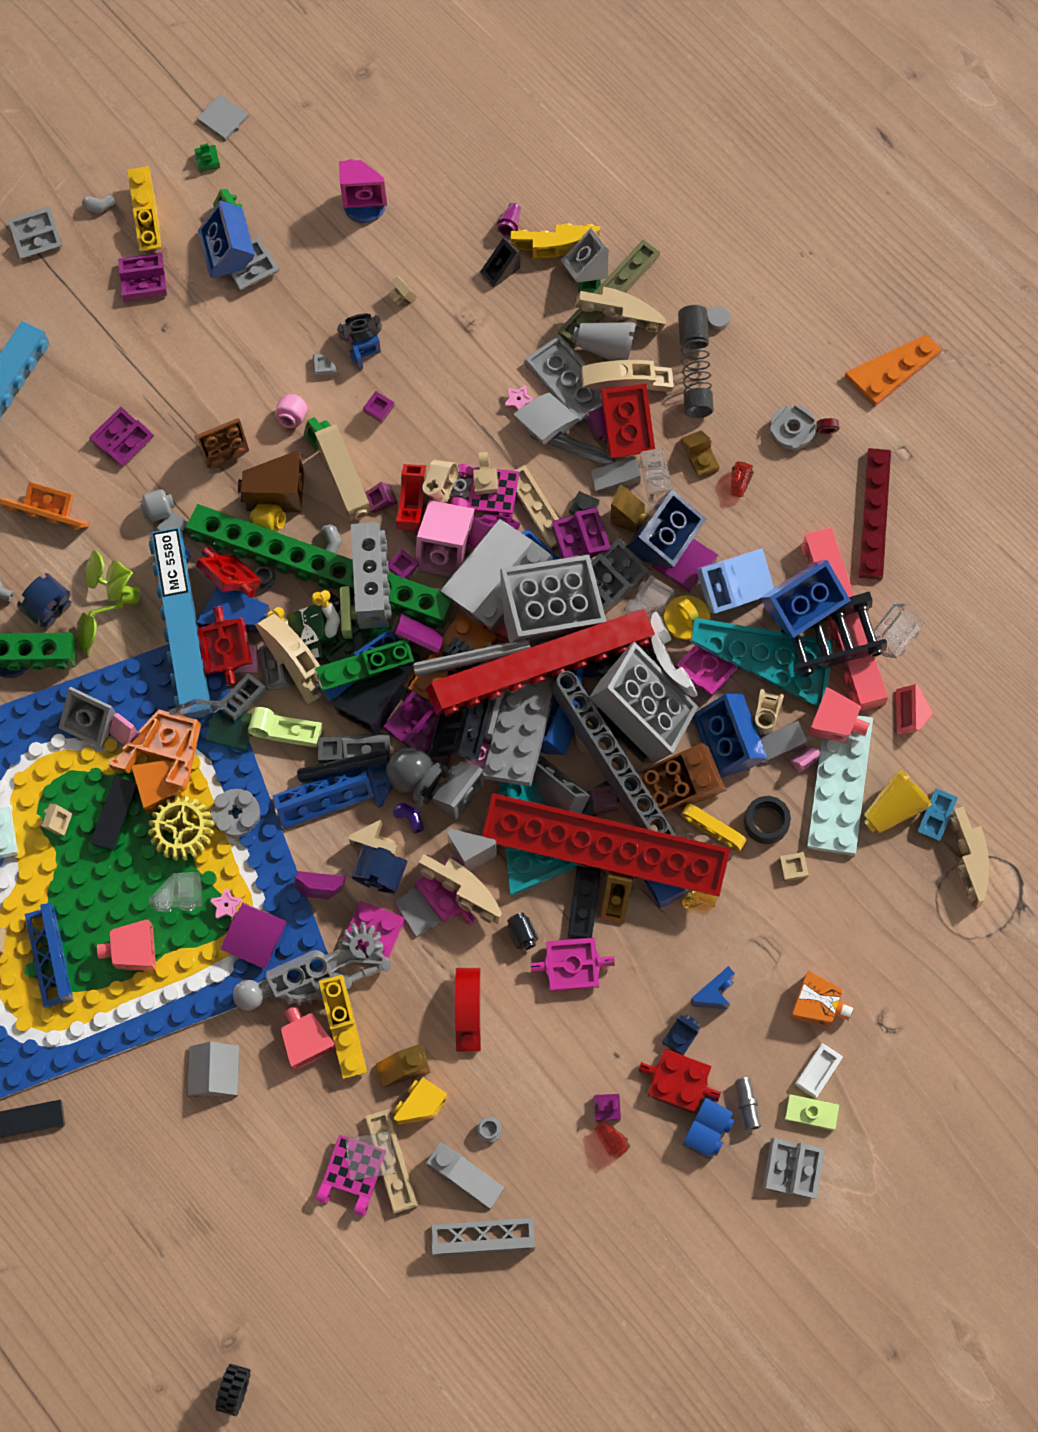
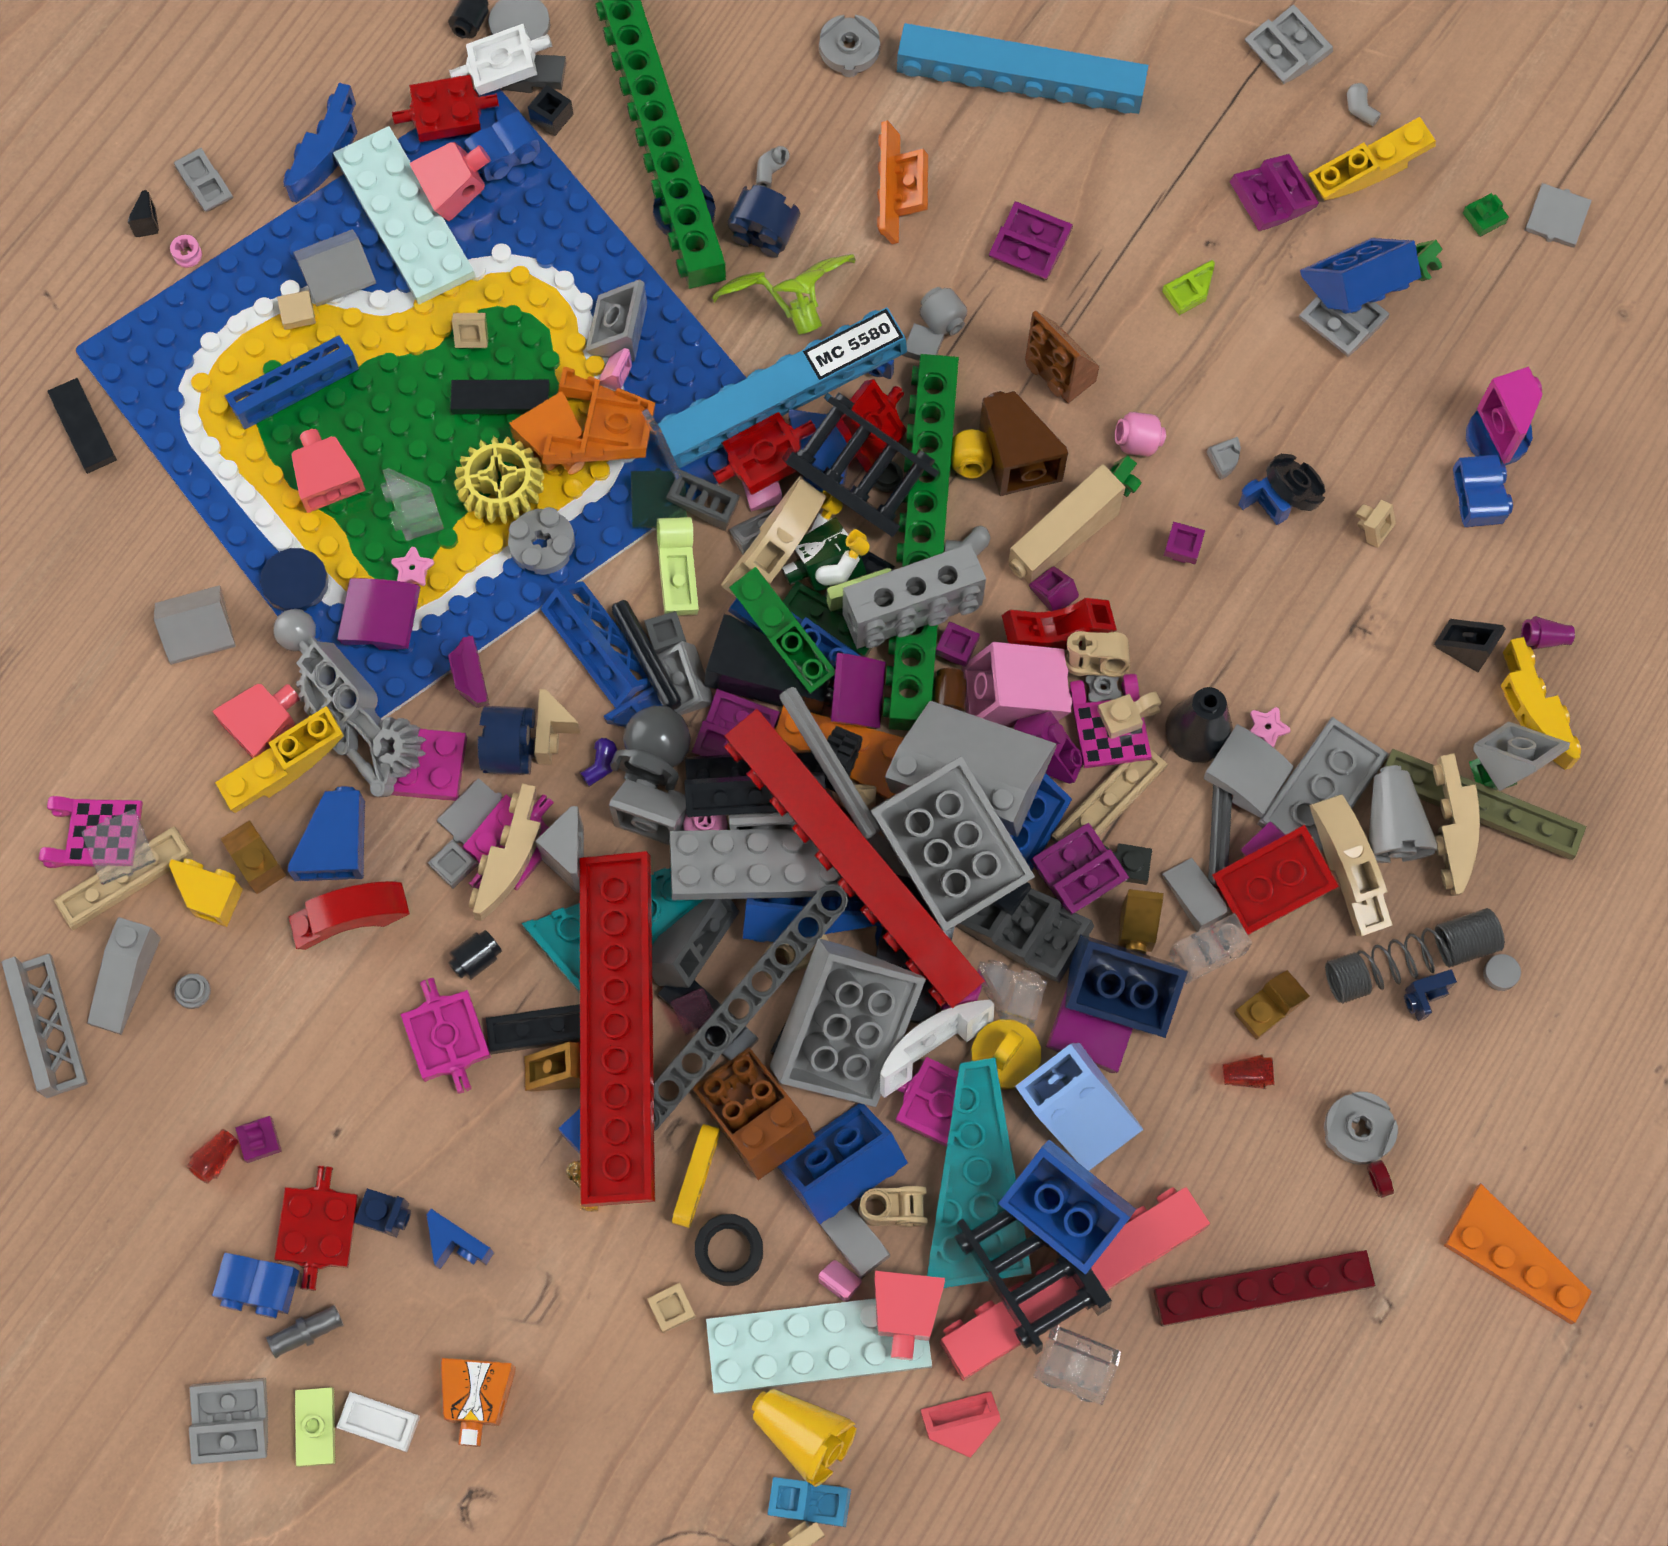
camera: 70 degrees right, 0 degrees up
(194, 350) = (1190, 288): none -> lime tile
(207, 989) = (294, 579): none -> dark blue tile
(262, 604) = (831, 477): none -> black fence
(401, 223) = (1482, 491): none -> blue brick
(410, 1006) = (333, 839): none -> blue slope
(433, 578) = (950, 688): none -> reddish brown brick
(451, 933) = (452, 864): none -> light grey tile
(506, 436) = (1199, 725): none -> black cone
(718, 362) = (1433, 987): none -> dark blue bracket

